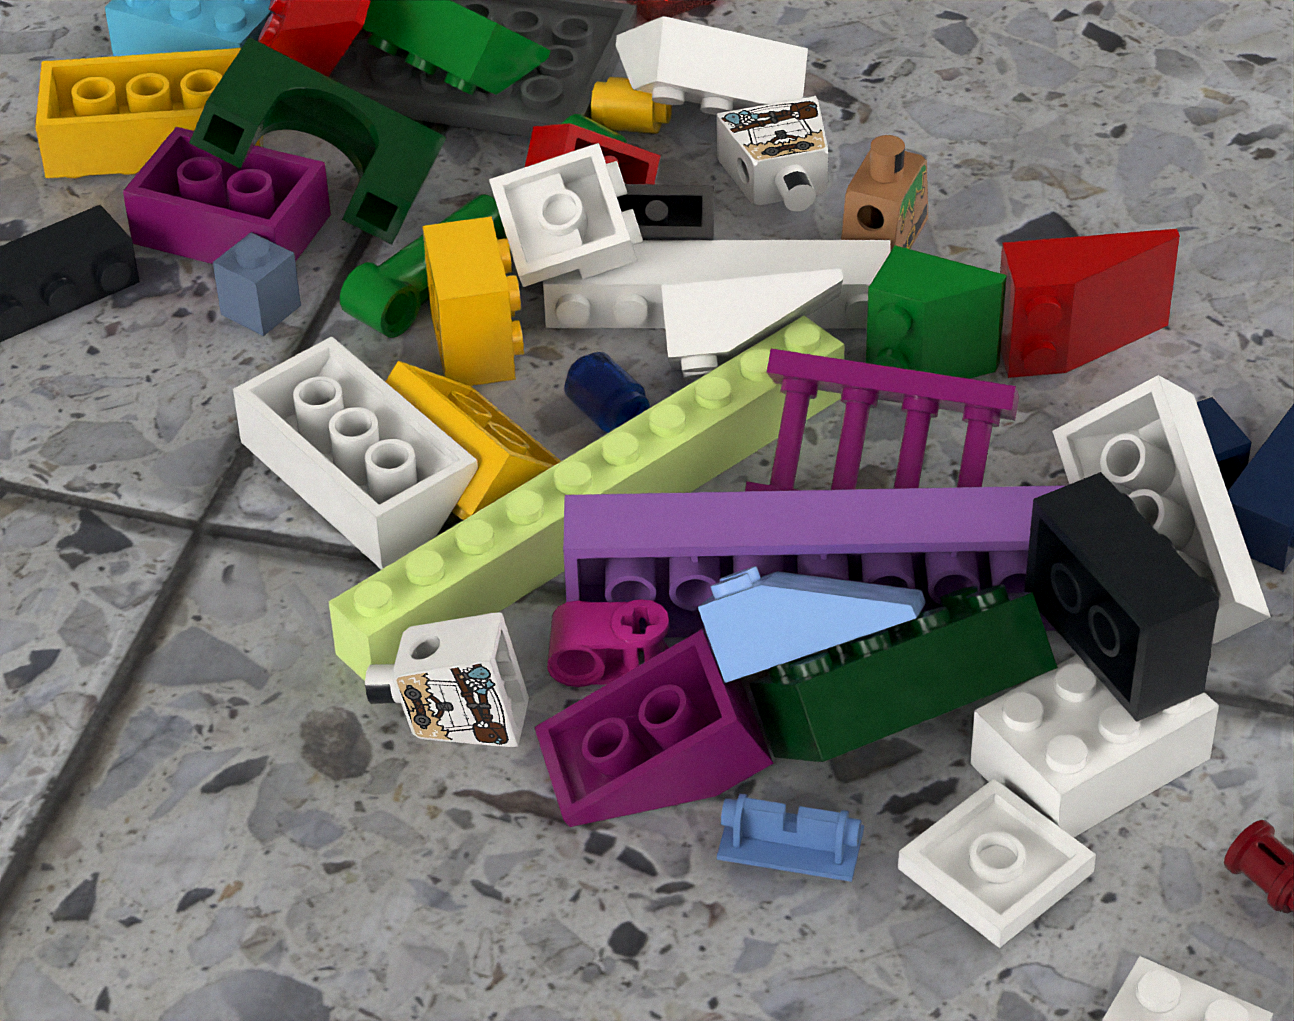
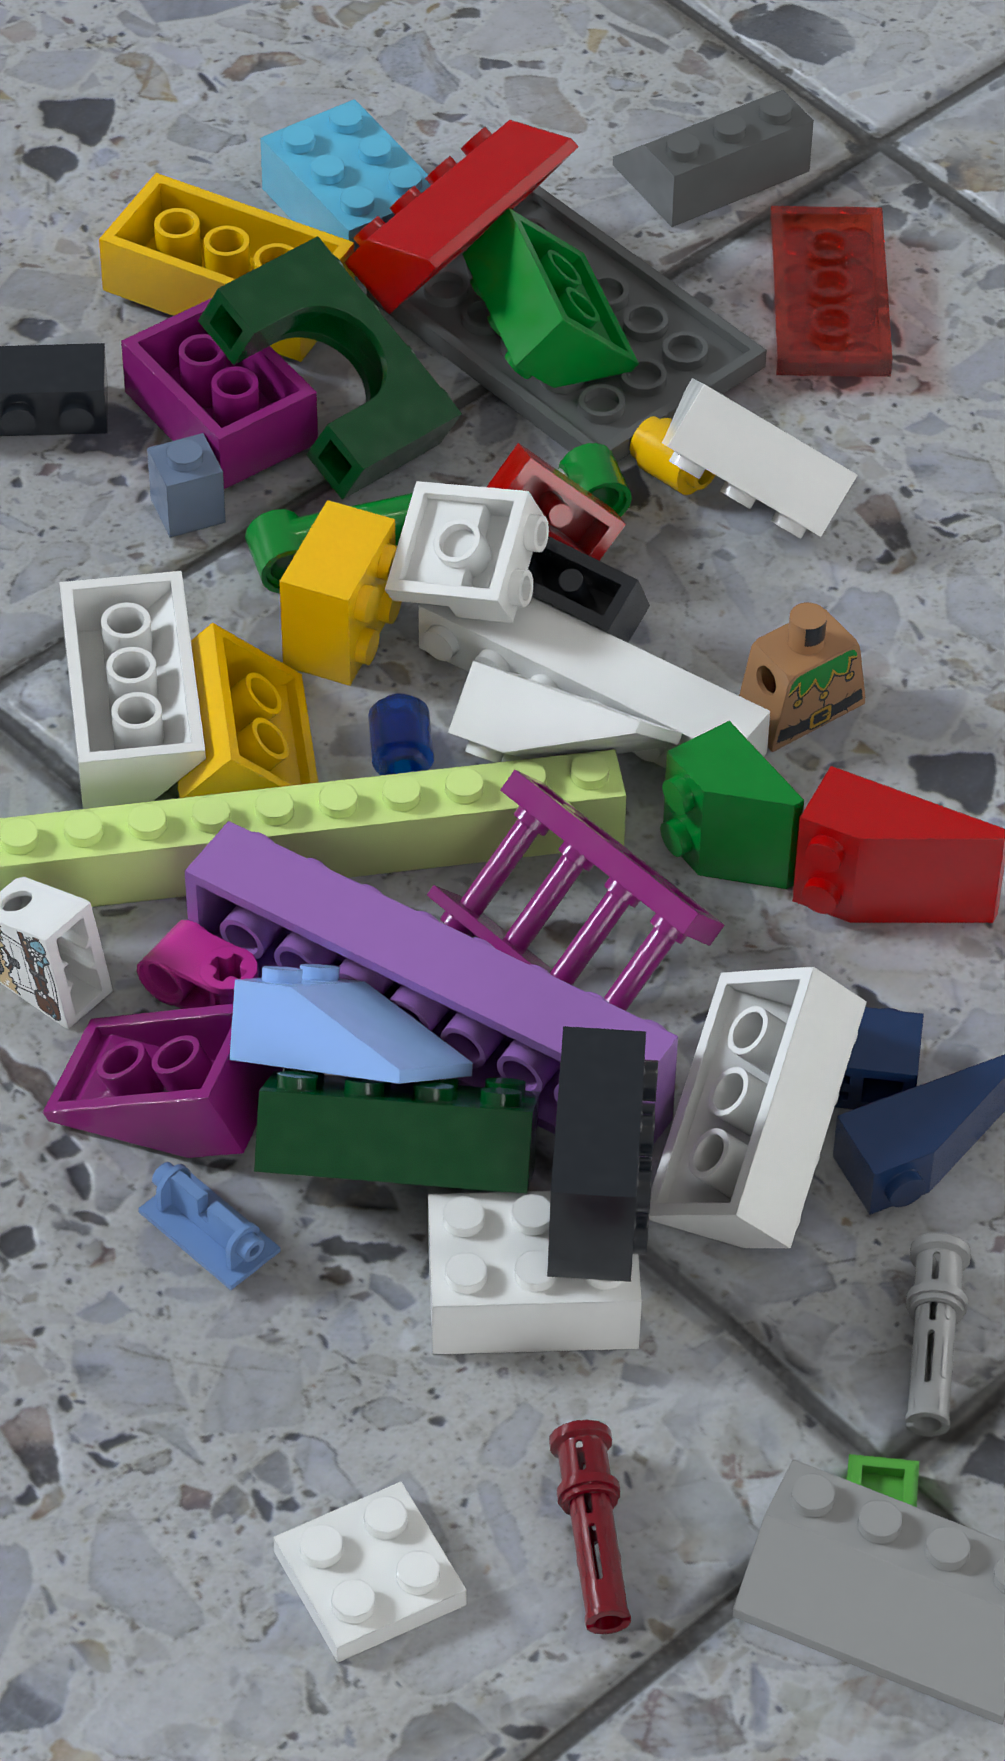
camera: 30 degrees right, 5 degrees up
(776, 152) = (768, 568): white torso -> none
(996, 862) = (357, 1338): white plate -> none

